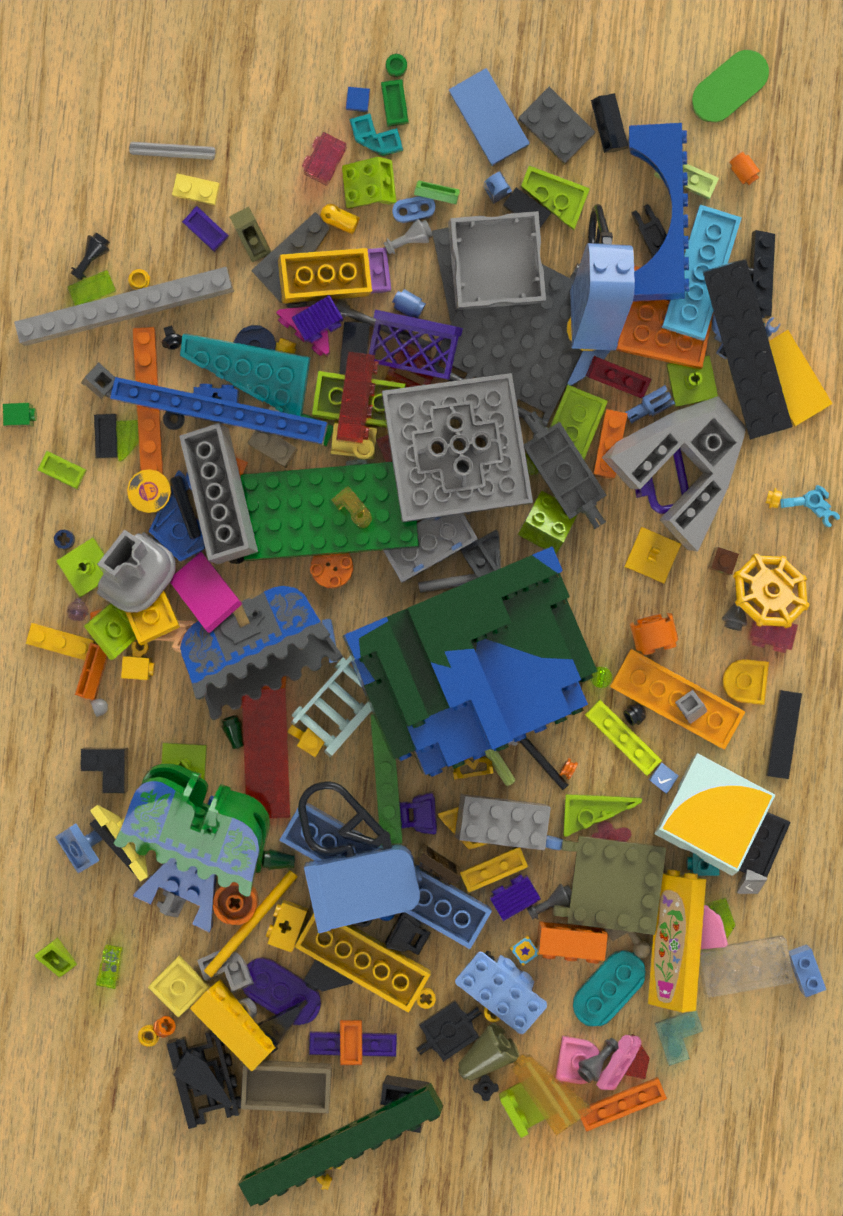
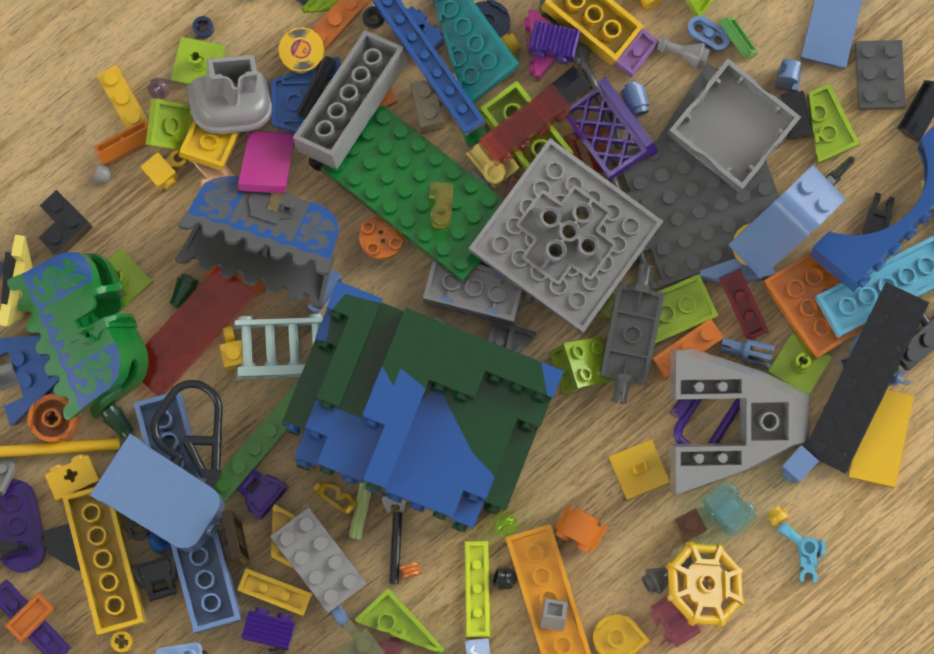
camera: 50 degrees right, 10 degrees down
(740, 527) = (729, 509): none -> clear light blue brick
(756, 451) = (798, 465): none -> medium blue brick

